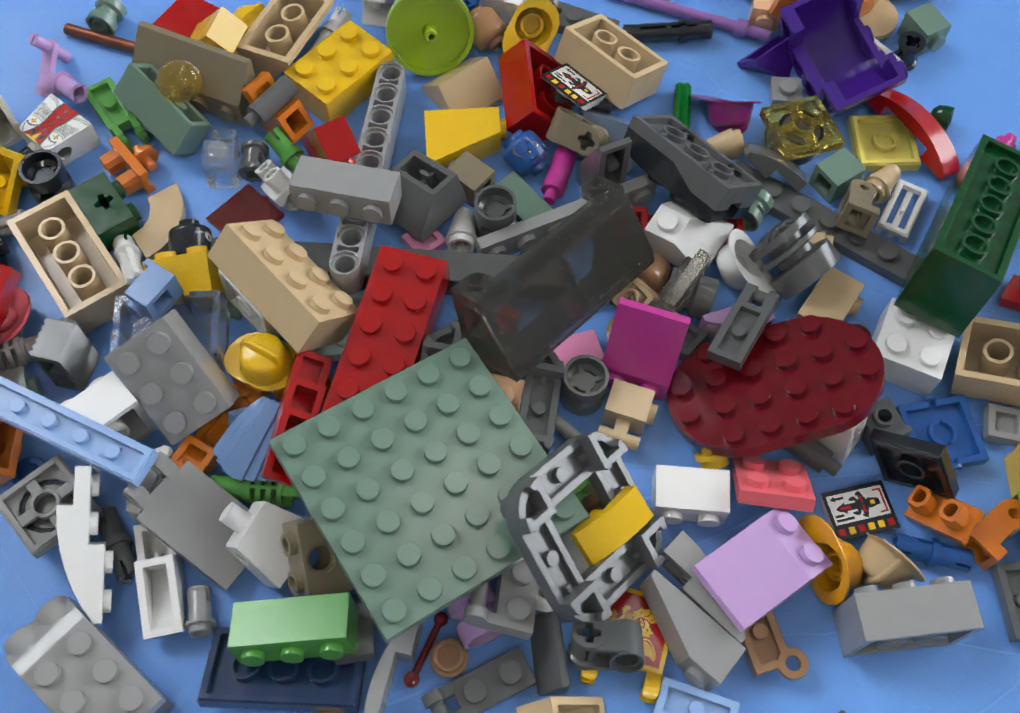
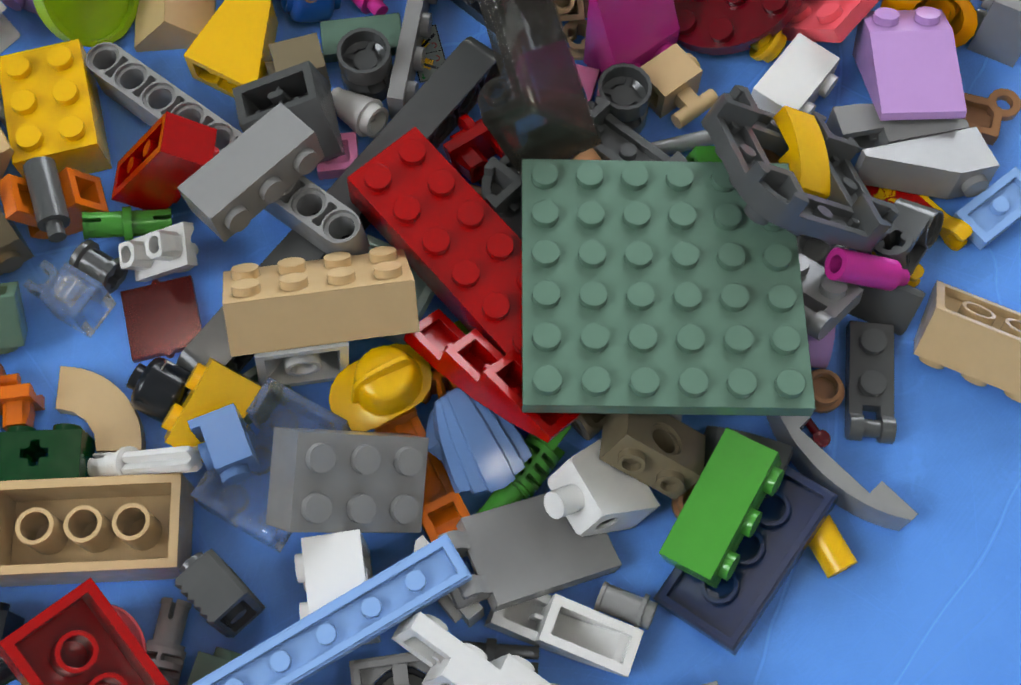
camera: 55 degrees left, 5 degrees up
(545, 625) = (865, 269): none -> dark pink cylinder

